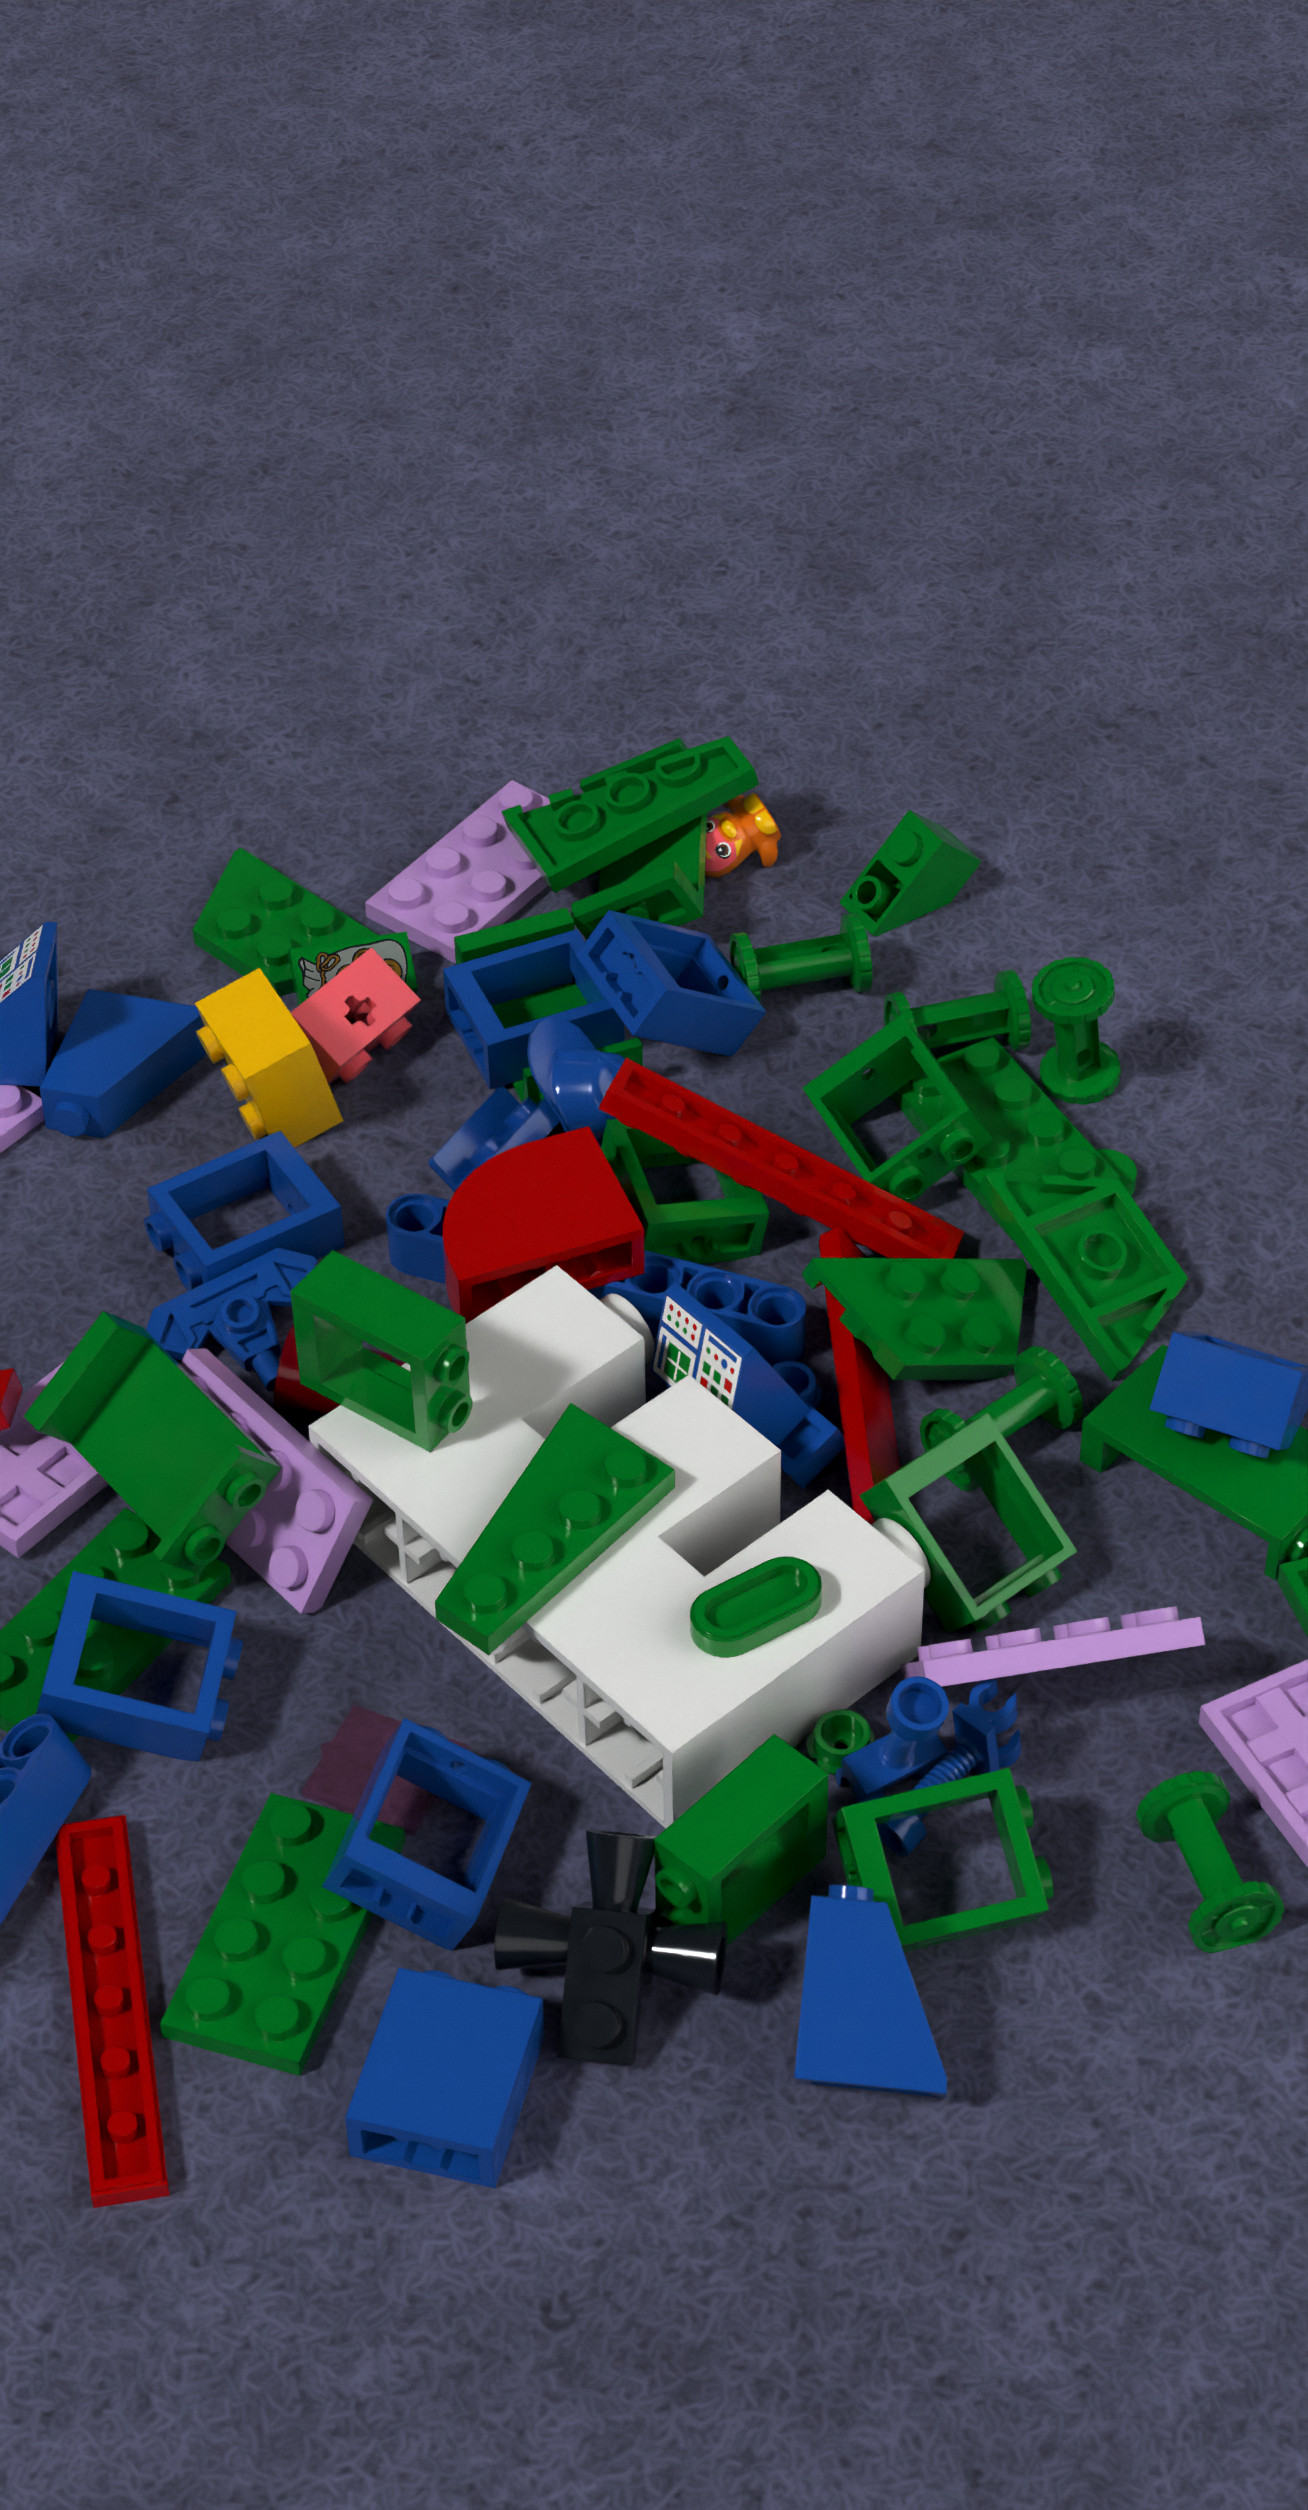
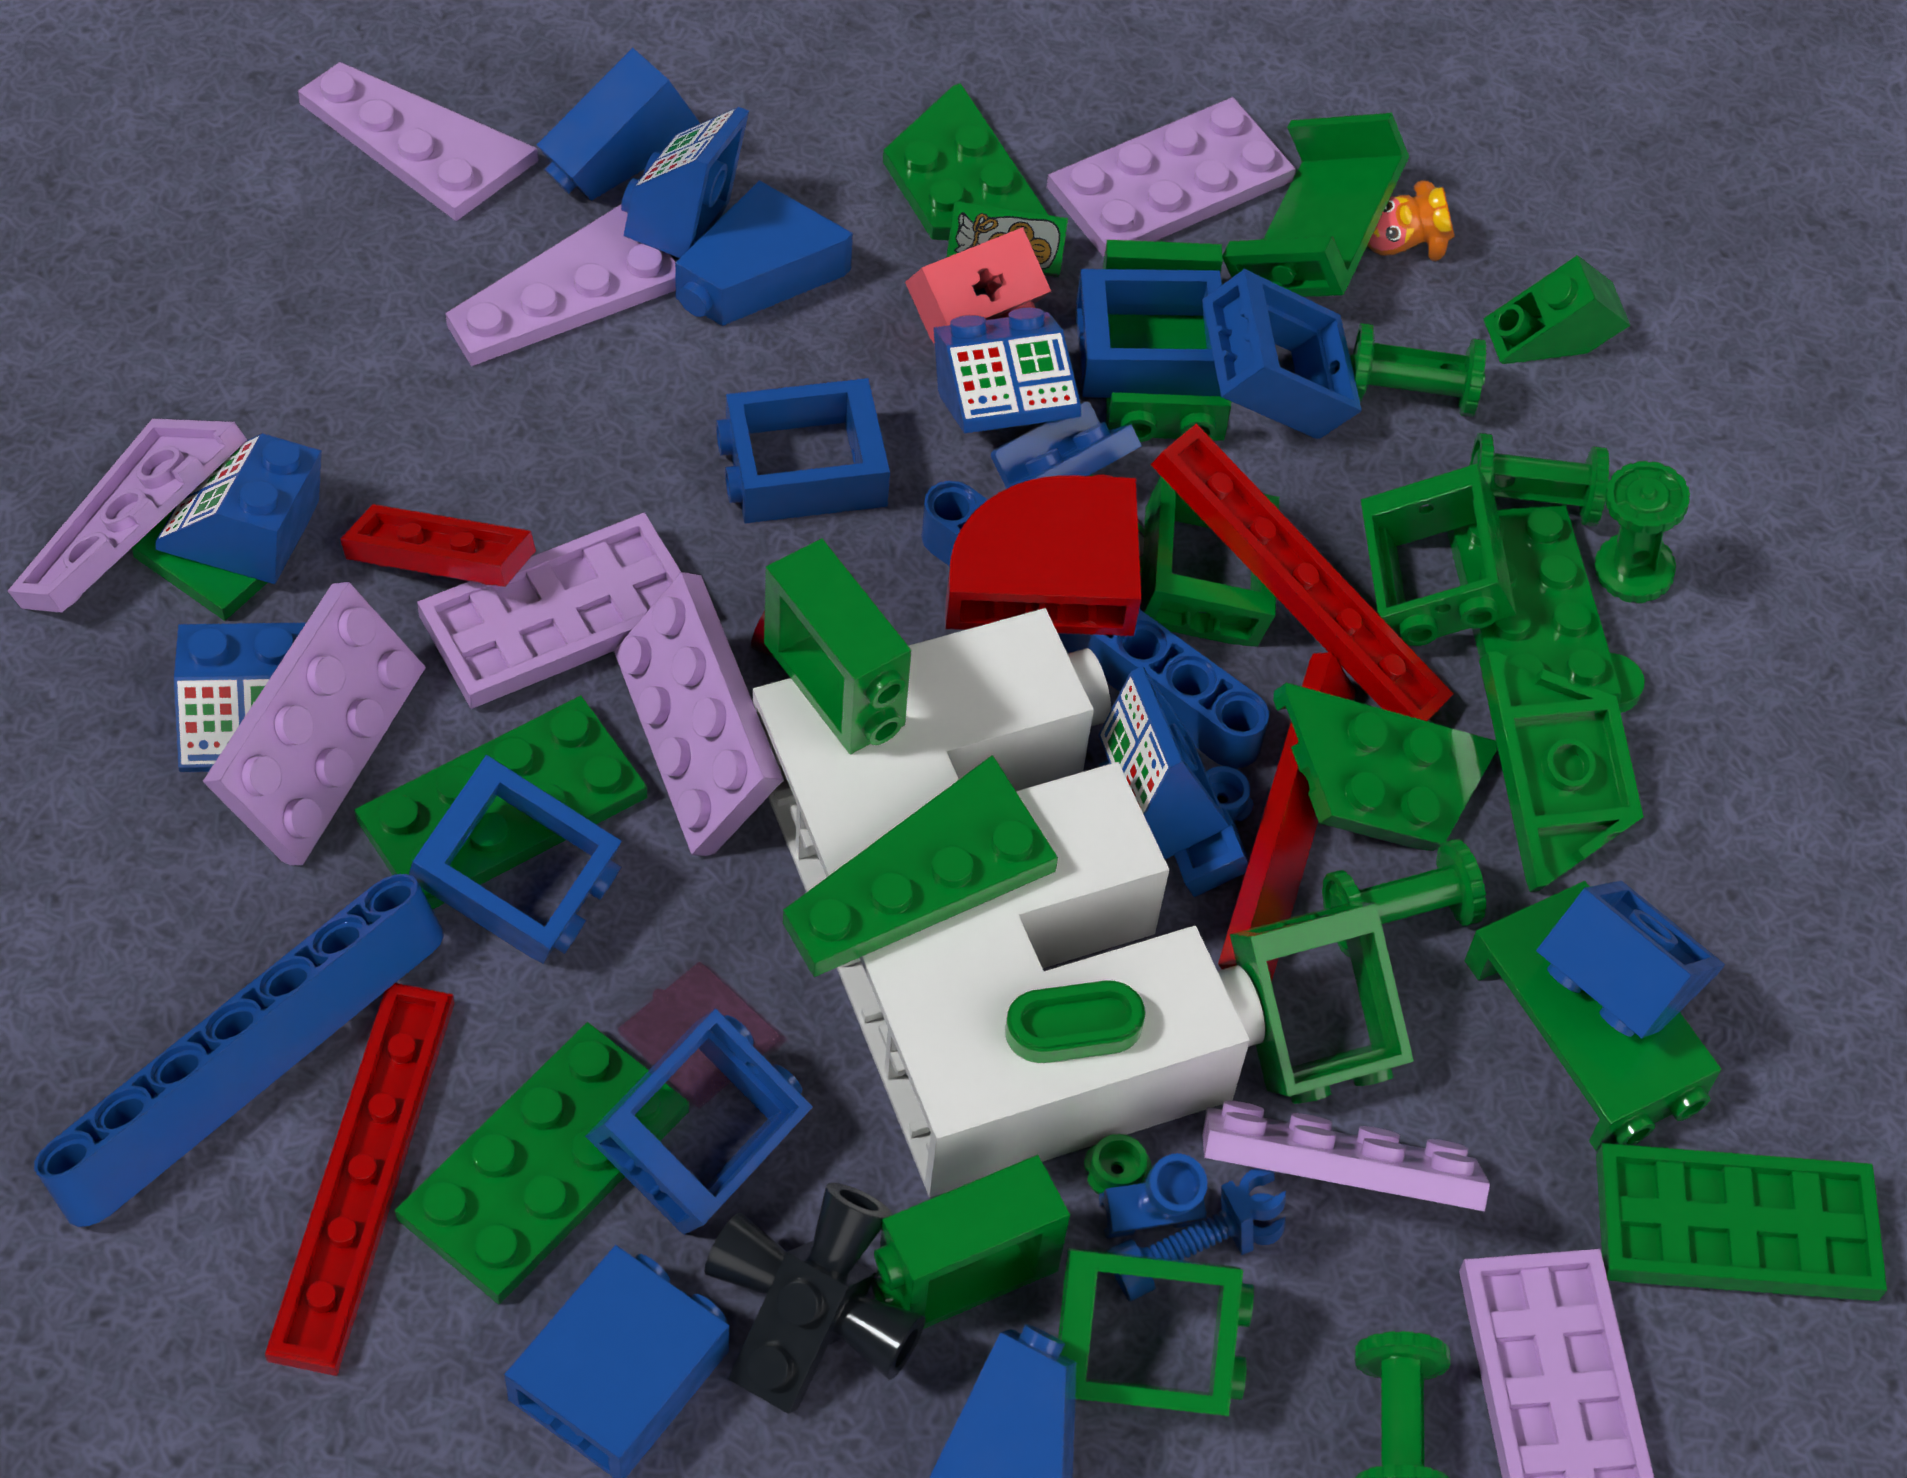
camera: 15 degrees right, 10 degrees up
(155, 1440) = (621, 648): green panel -> none
(235, 1312) = (755, 535): blue piece -> none
(267, 1061) = (882, 307): yellow brick -> none
(409, 1082) = (1005, 371): none -> slope
(572, 1074) = (1149, 416): blue piece -> none
(604, 824) = (1291, 173): green wing -> none

